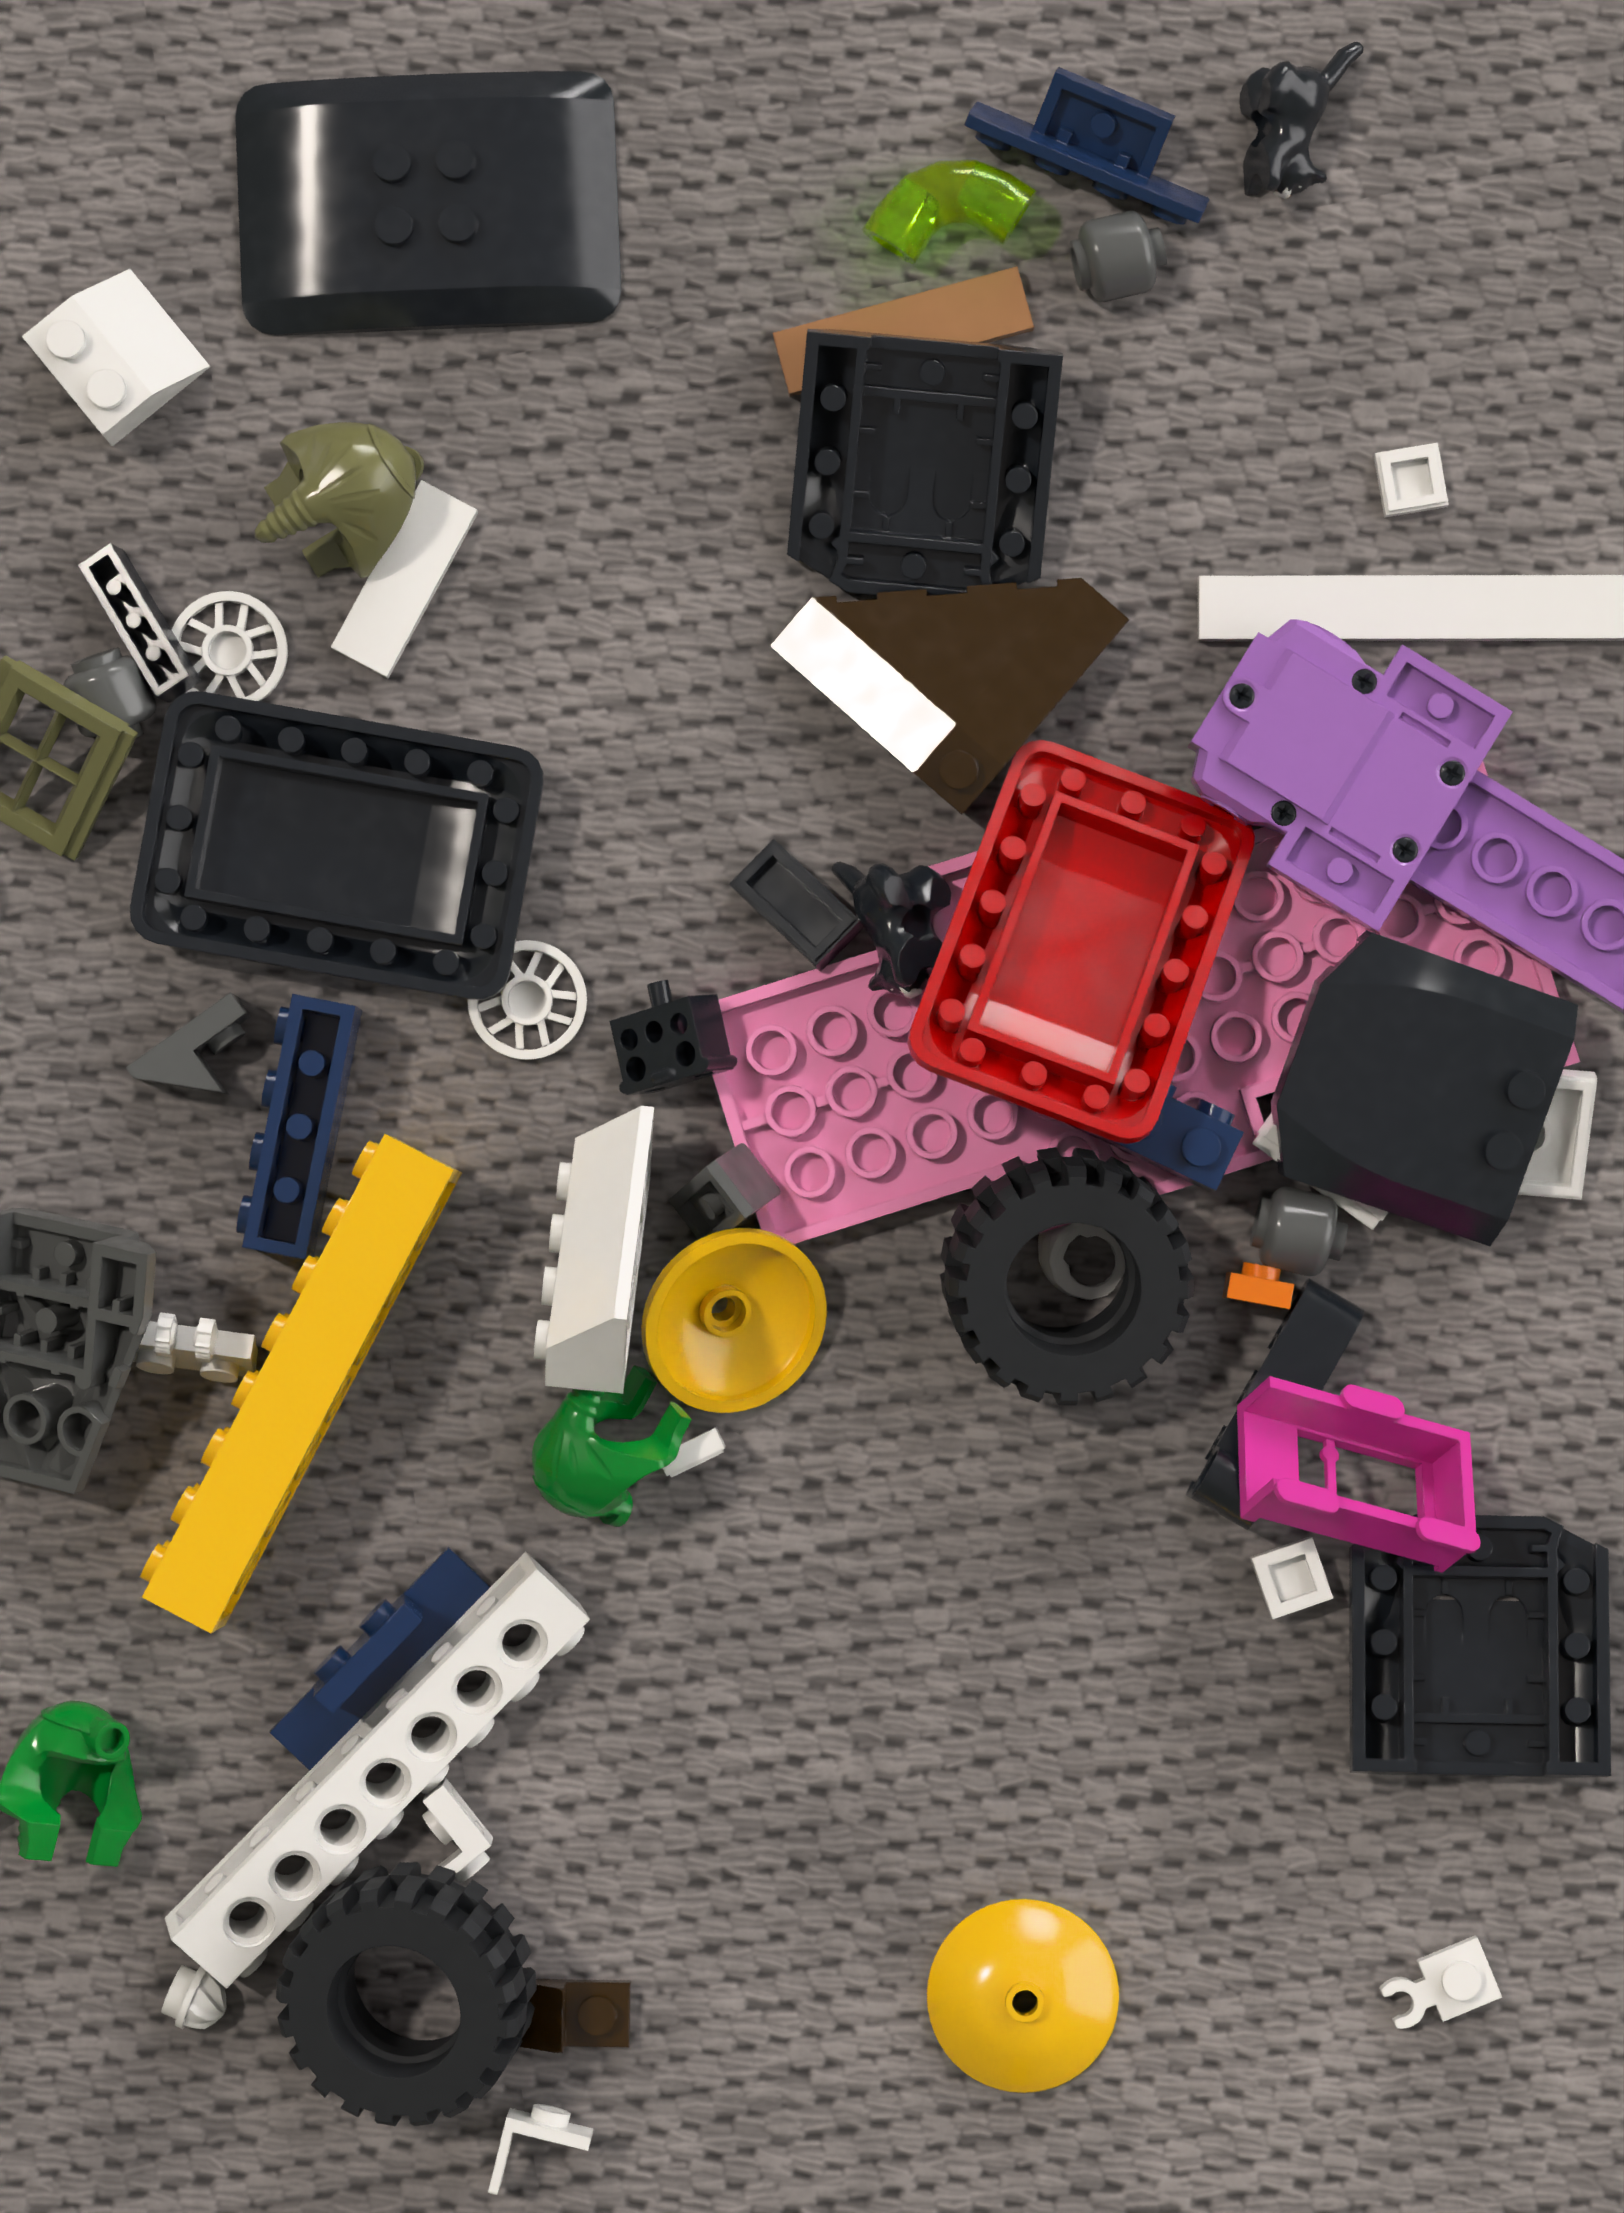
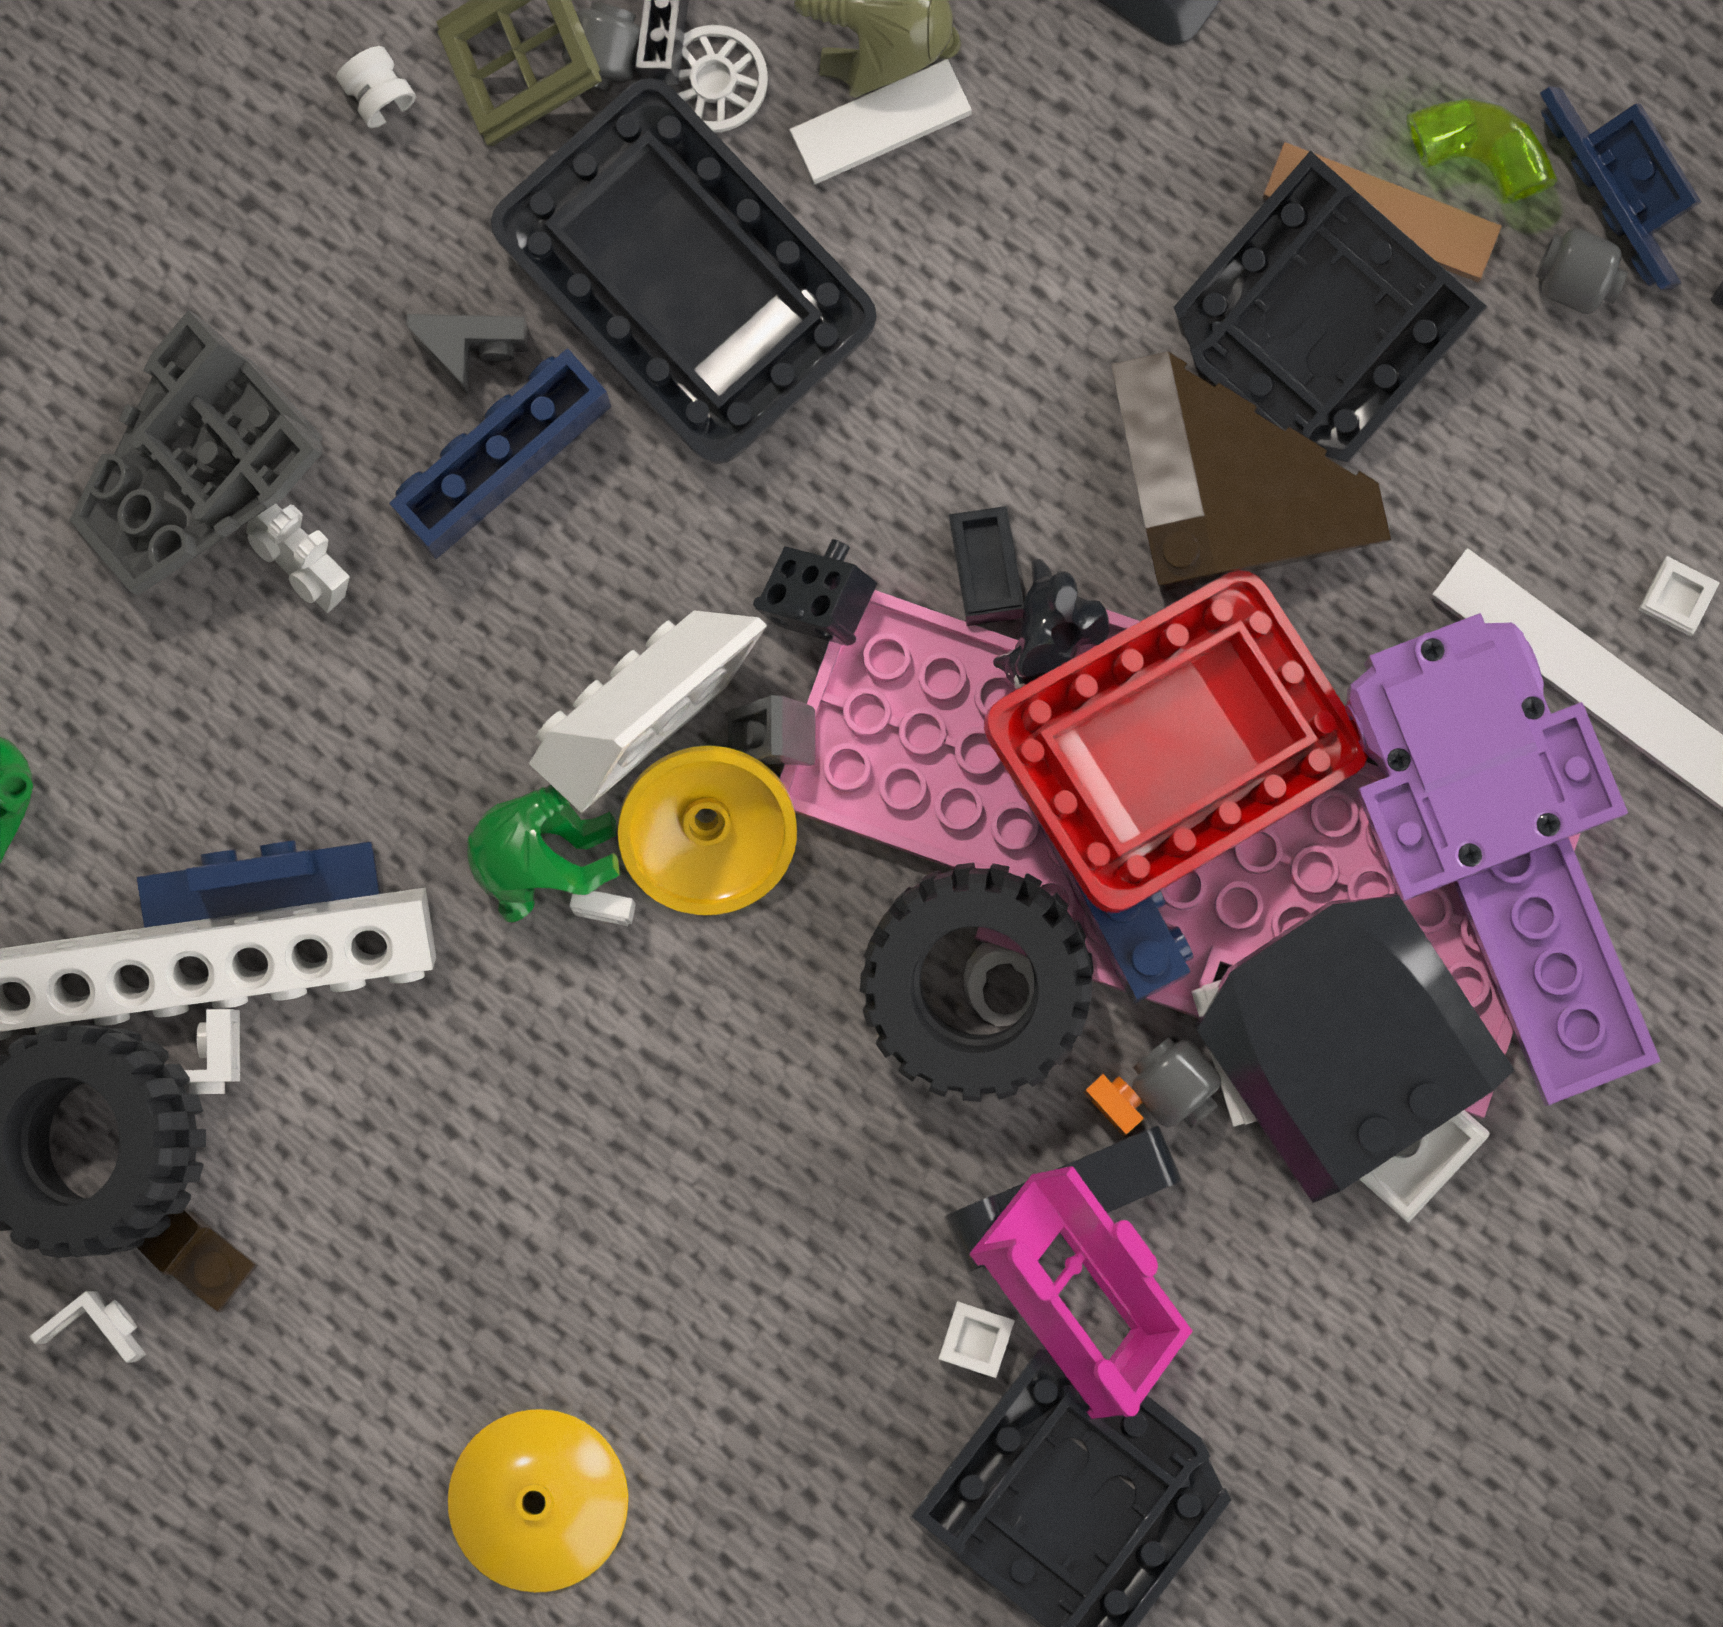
camera: 40 degrees right, 5 degrees down
(300, 1384) = (354, 635): yellow brick -> none
(529, 1002) = (737, 491): white wheel -> none

